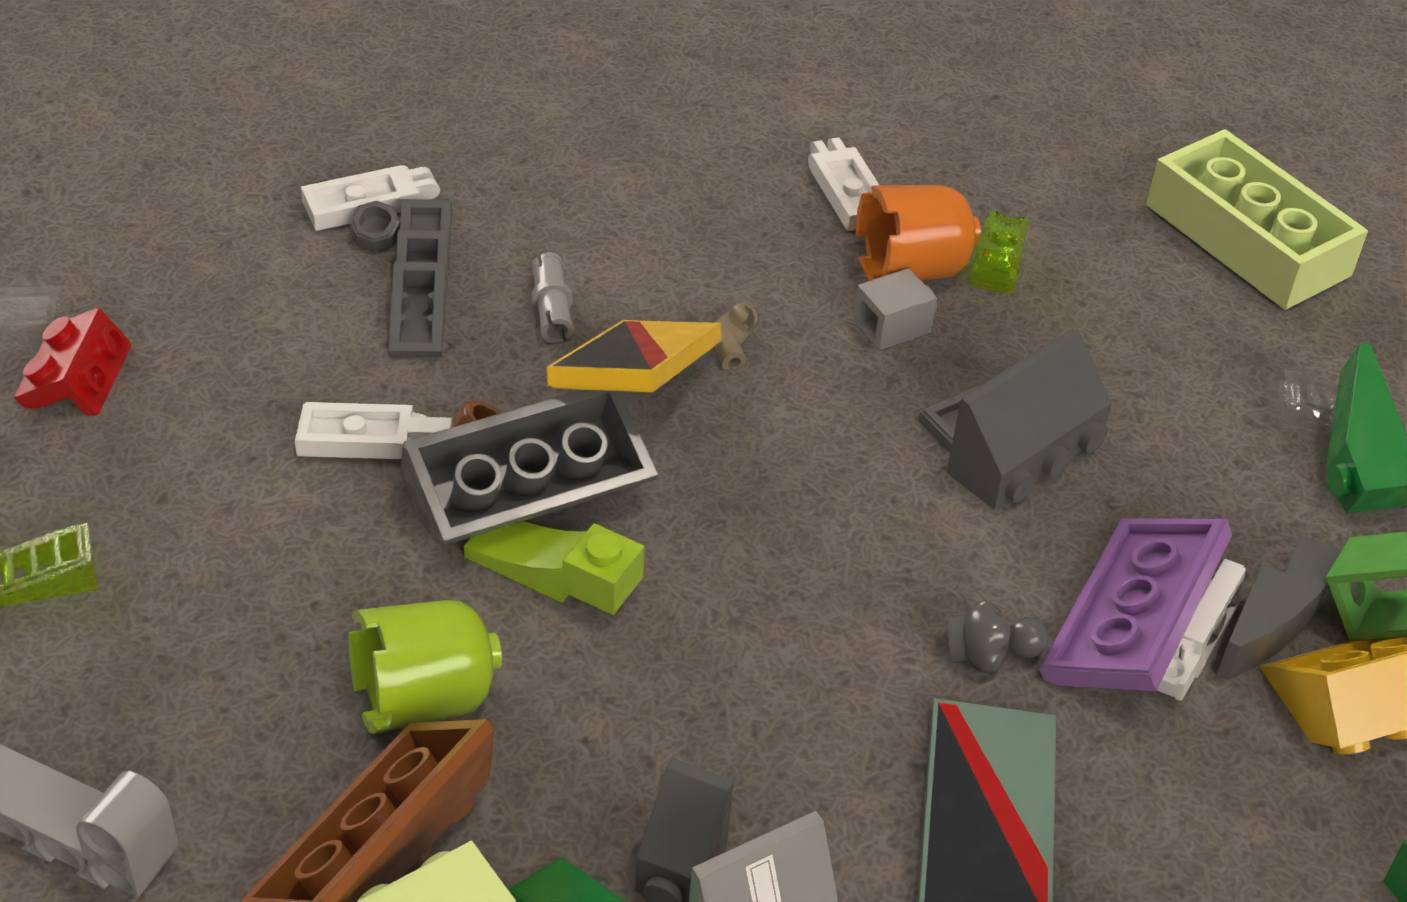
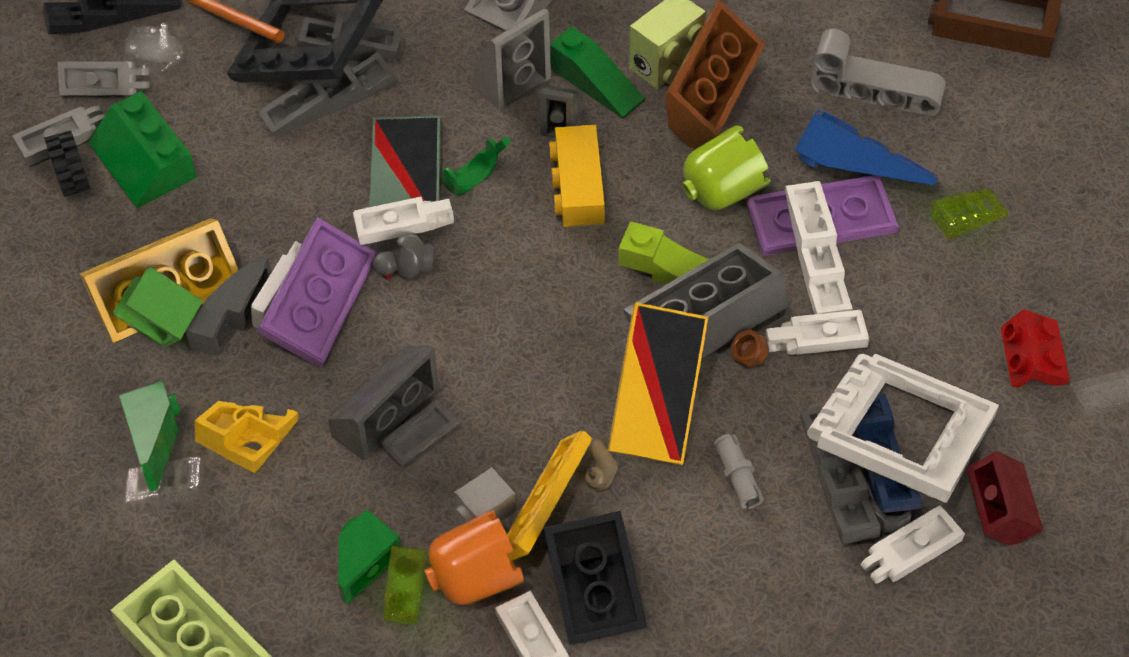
camera: 175 degrees right, 10 degrees up
(177, 696) = (839, 146): none -> blue wedge
(233, 200) = (1004, 498): none -> dark red brick
(266, 610) = (856, 207): none -> medium lavender tile
(271, 243) = (949, 455): none -> white hinge
(317, 531) = (817, 248): none -> white slope
(359, 270) = (878, 428): none -> dark blue slope
(675, 713) = (577, 176): none -> yellow brick
(770, 231) = (594, 577): none -> black slope
(813, 297) = (546, 493): none -> yellow tile
(875, 791) = (476, 170): none -> green helmet
(1002, 680) = (401, 219): none -> white hinge
(1052, 283) = (363, 553): none -> green slope
(1250, 453) = (229, 427): none -> yellow slope

